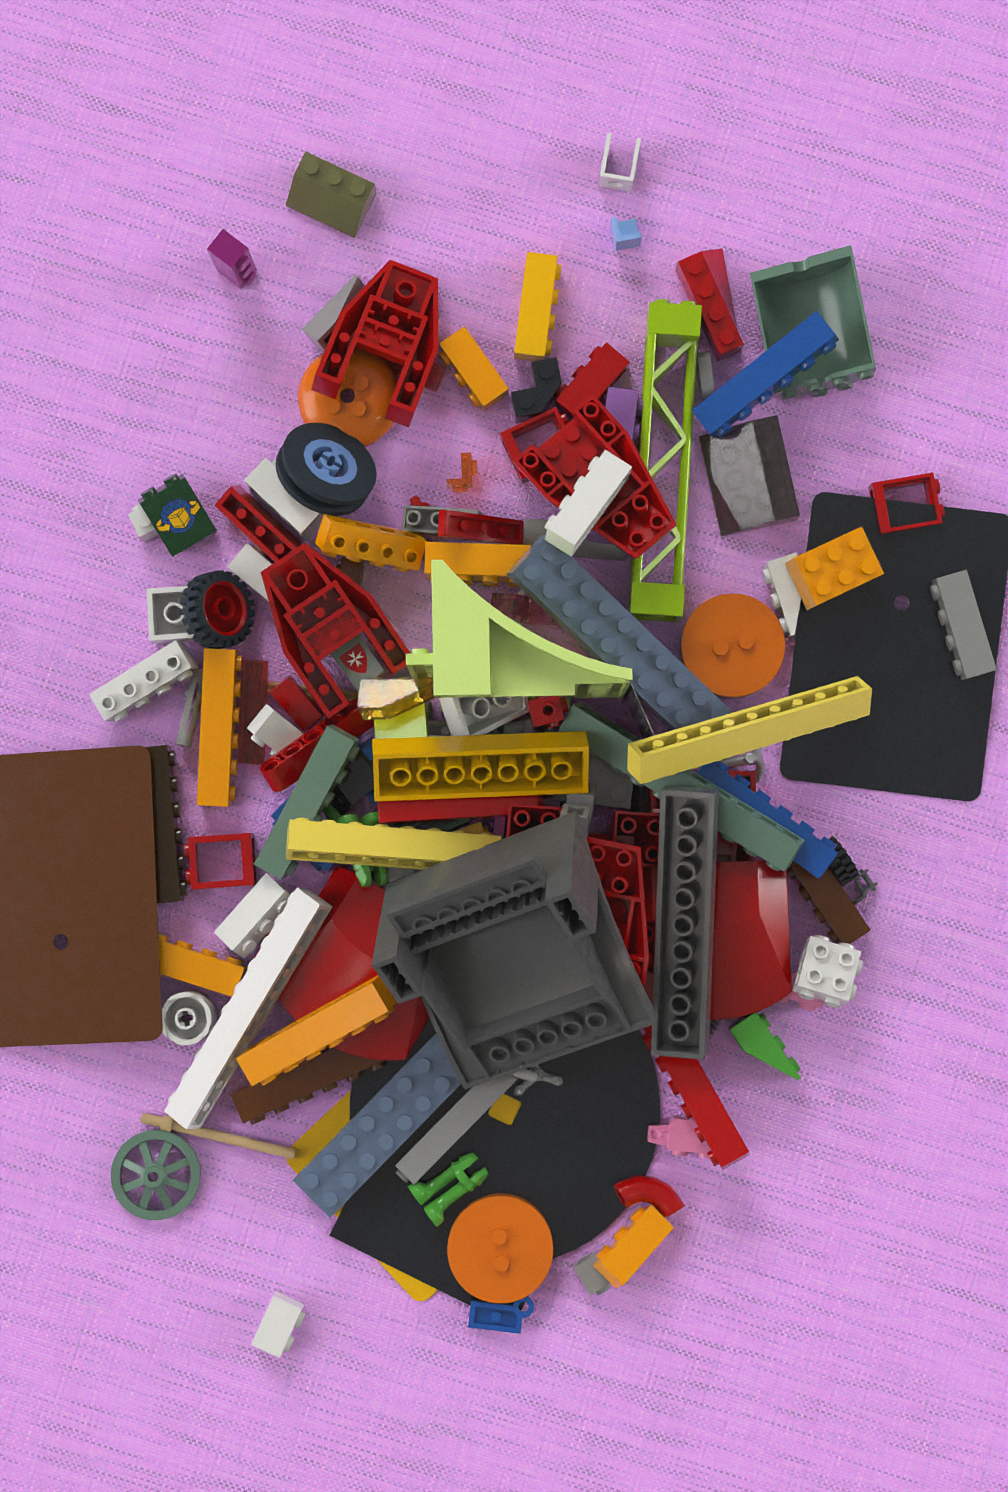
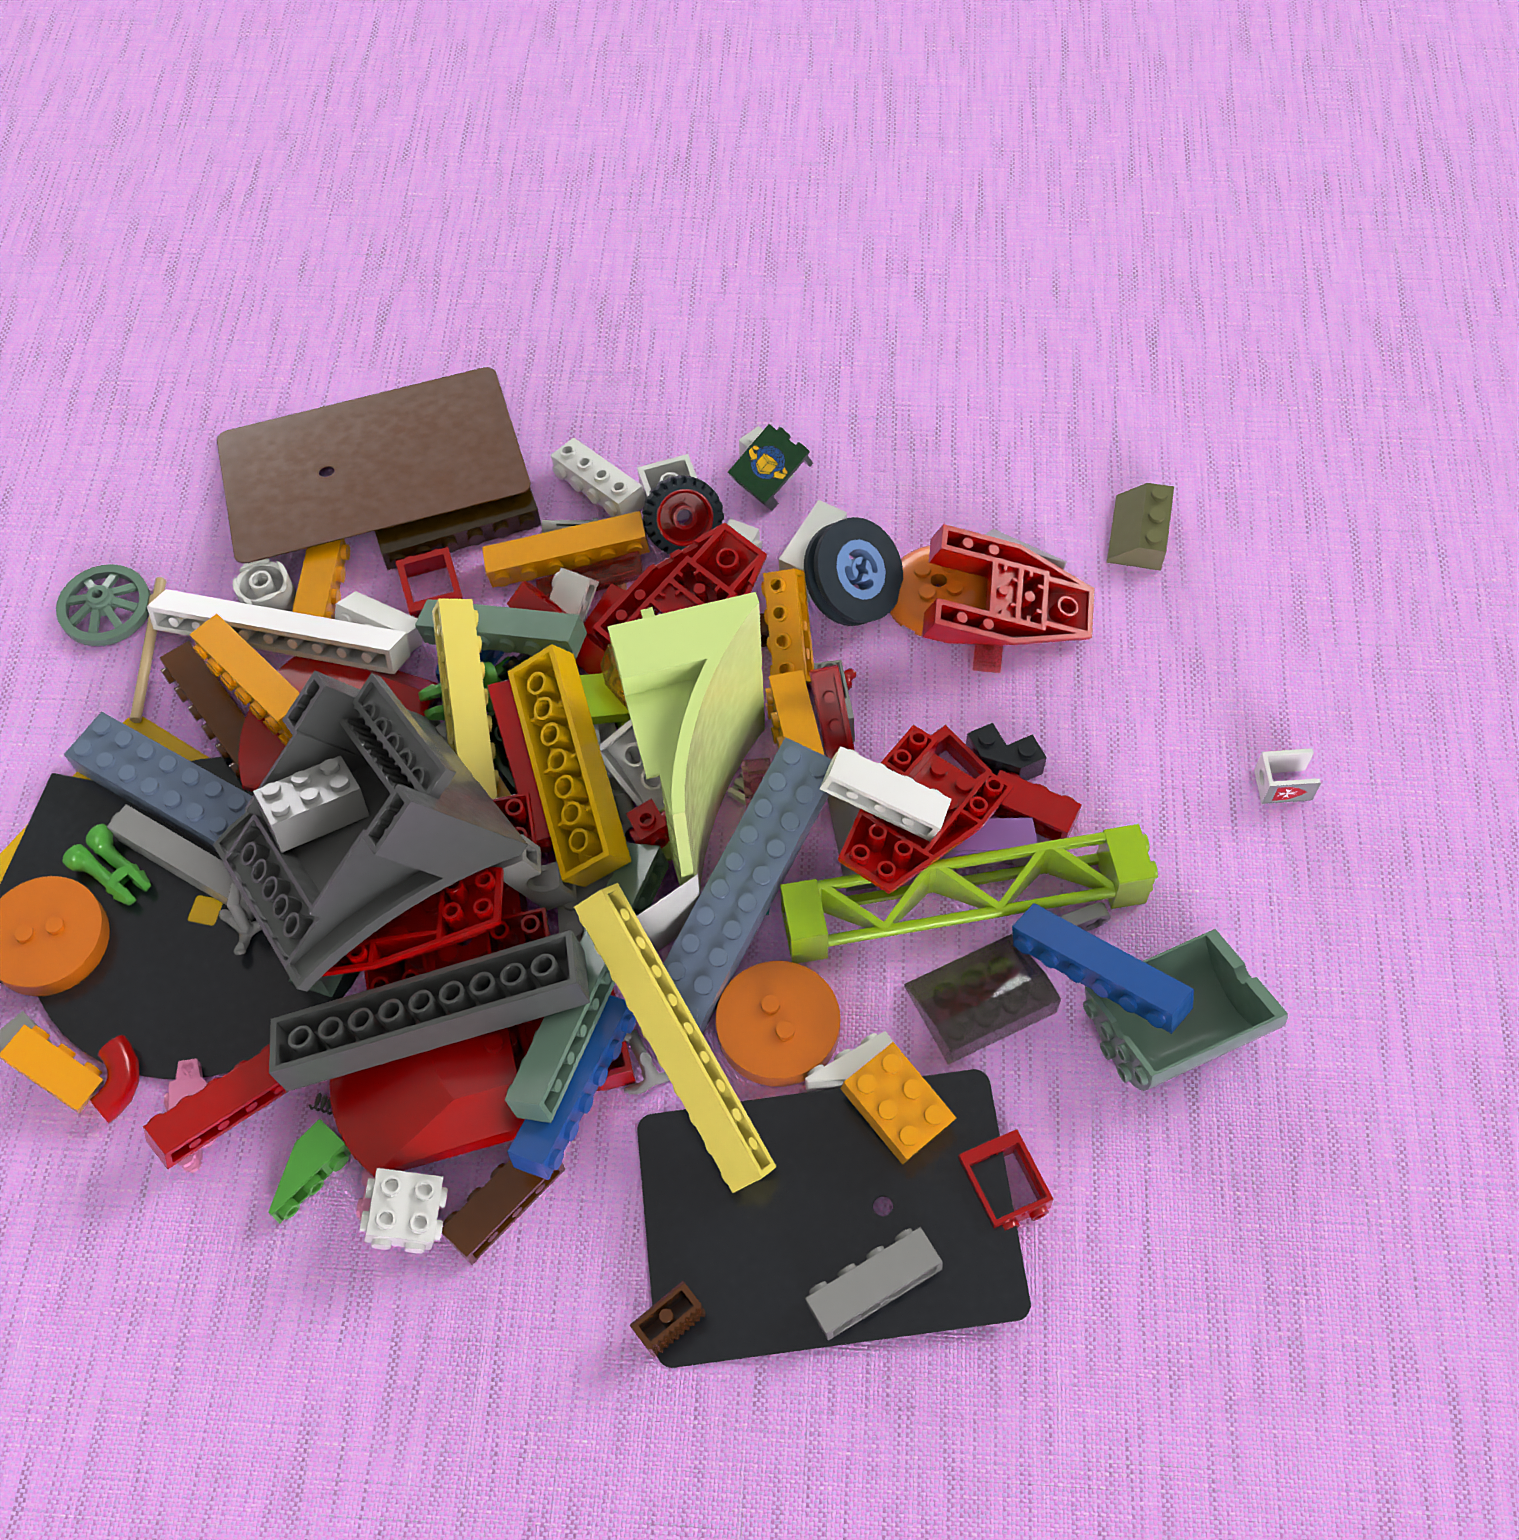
camera: 75 degrees right, 25 degrees down
(232, 259) = (1039, 447): magenta brick -> none
(257, 523) = (780, 531): red brick -> none
(469, 468) = (893, 710): clear orange bracket -> none
(473, 369) = (1007, 690): light orange brick -> none
(479, 990) = (311, 803): none -> light grey brick
(536, 305) = (1097, 734): yellow brick -> none
(625, 234) = (1210, 802): light blue panel -> none
(707, 285) = (1180, 901): red wedge -> none
(842, 866) = (544, 1199): black tyre -> none
(871, 885) = (516, 1247): dark grey piece -> none
(953, 785) = (668, 1319): none -> reddish brown brick

